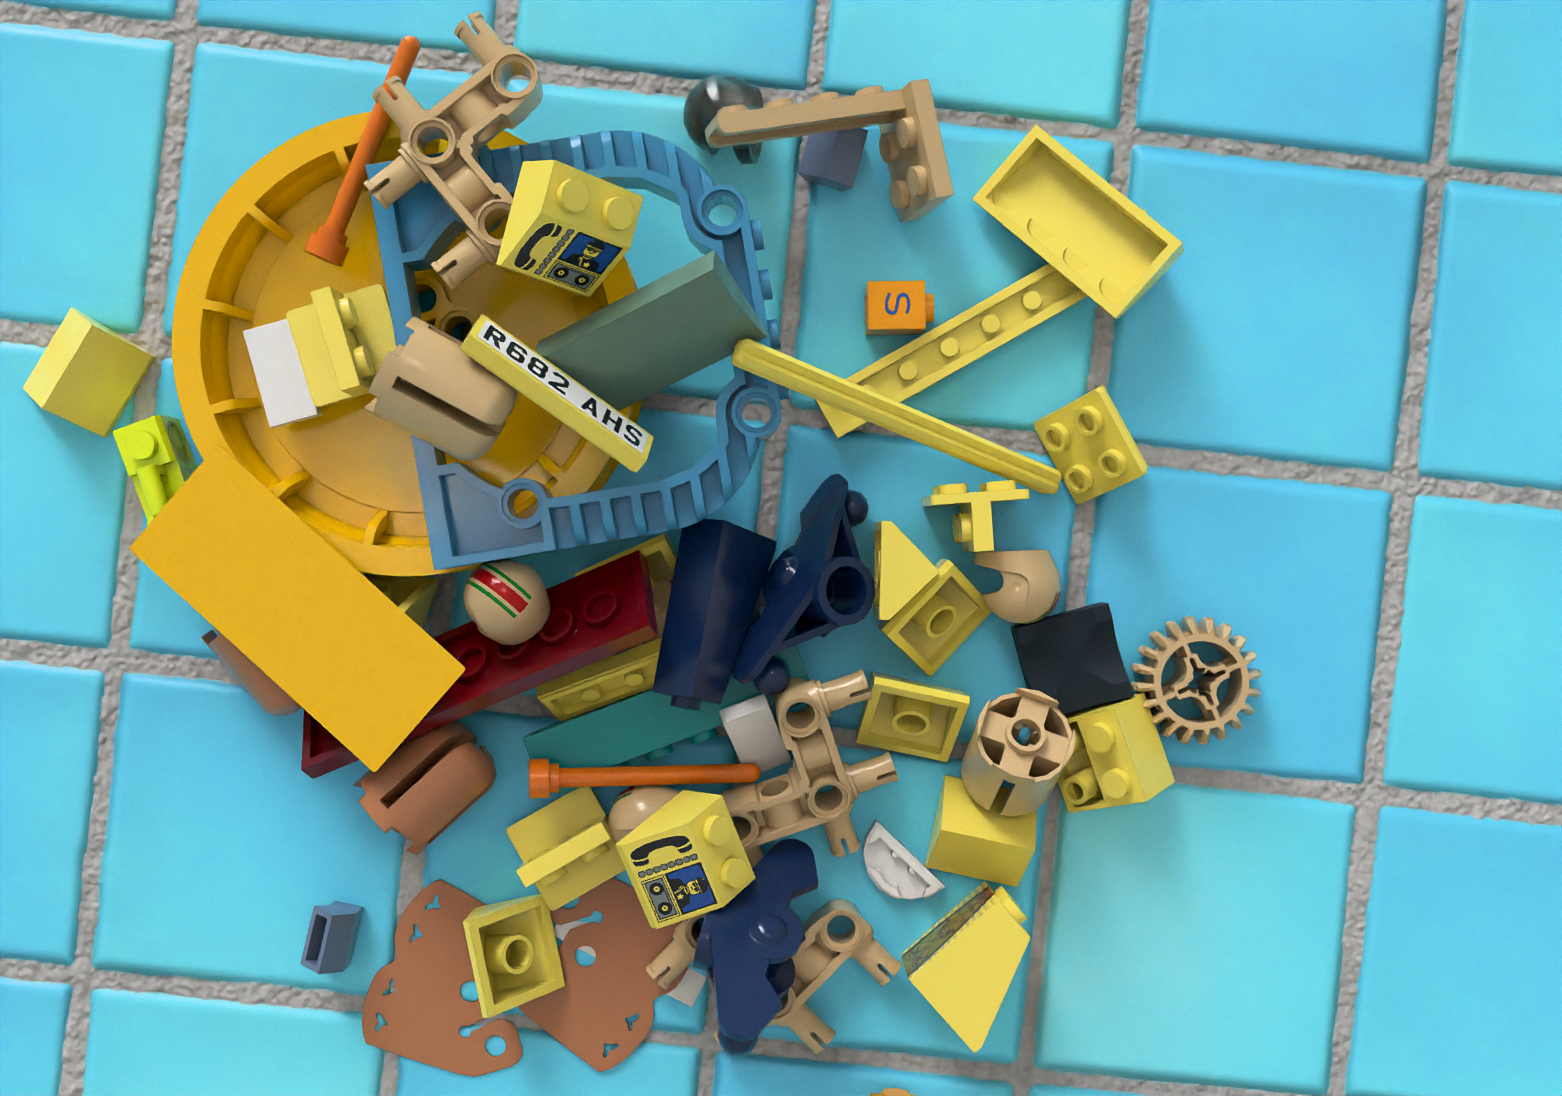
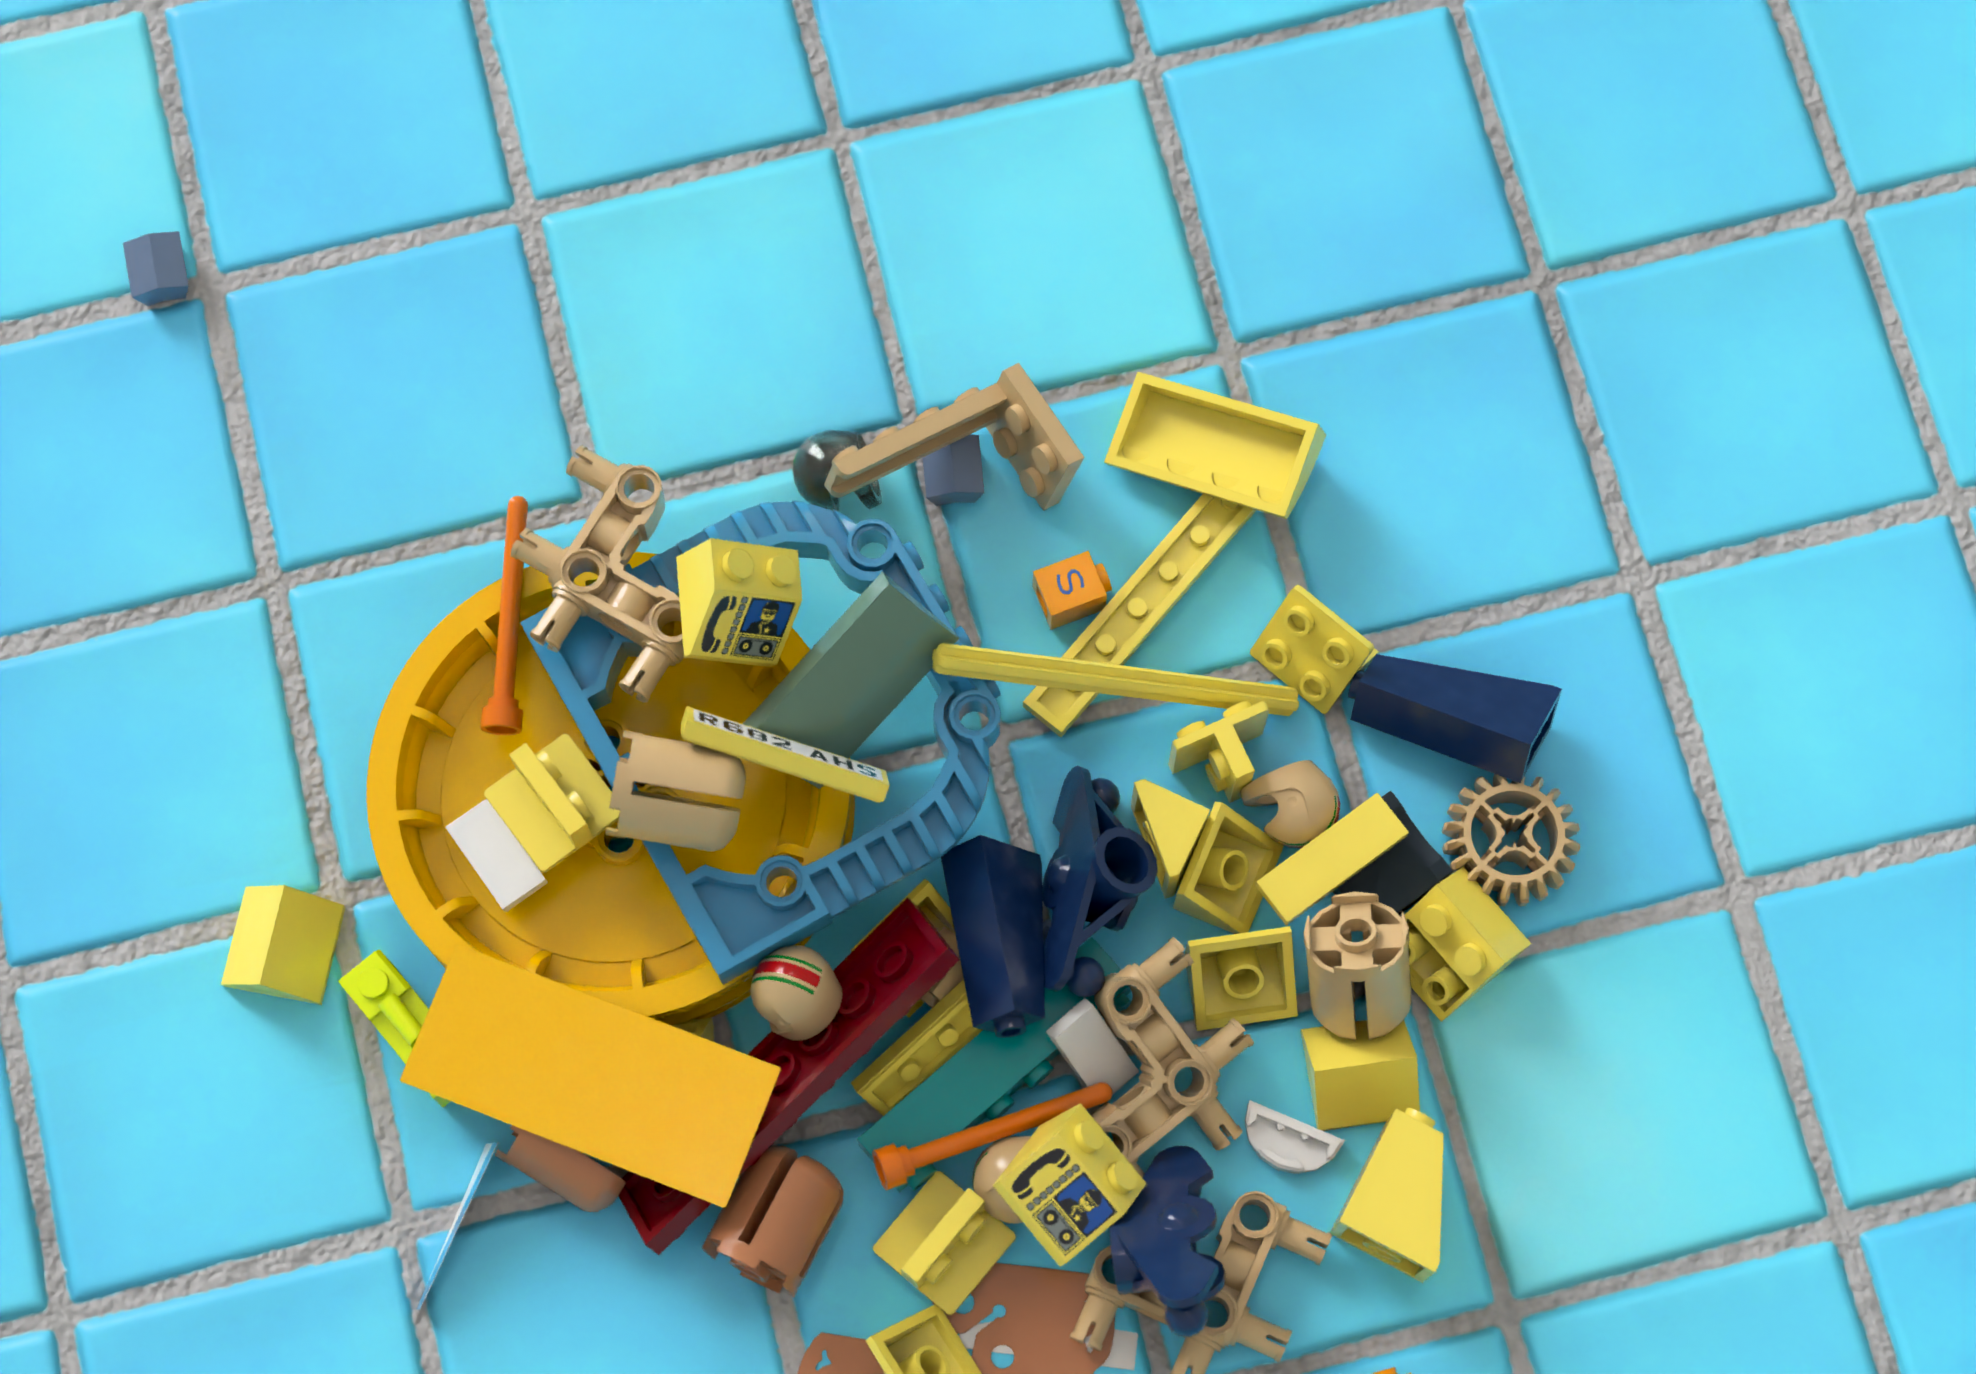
camera: 20 degrees left, 15 degrees down
(197, 632) = (475, 1180): none -> sticker
(1031, 648) = (1331, 859): none -> light yellow tile
(1196, 553) = (1457, 712): none -> dark blue slope

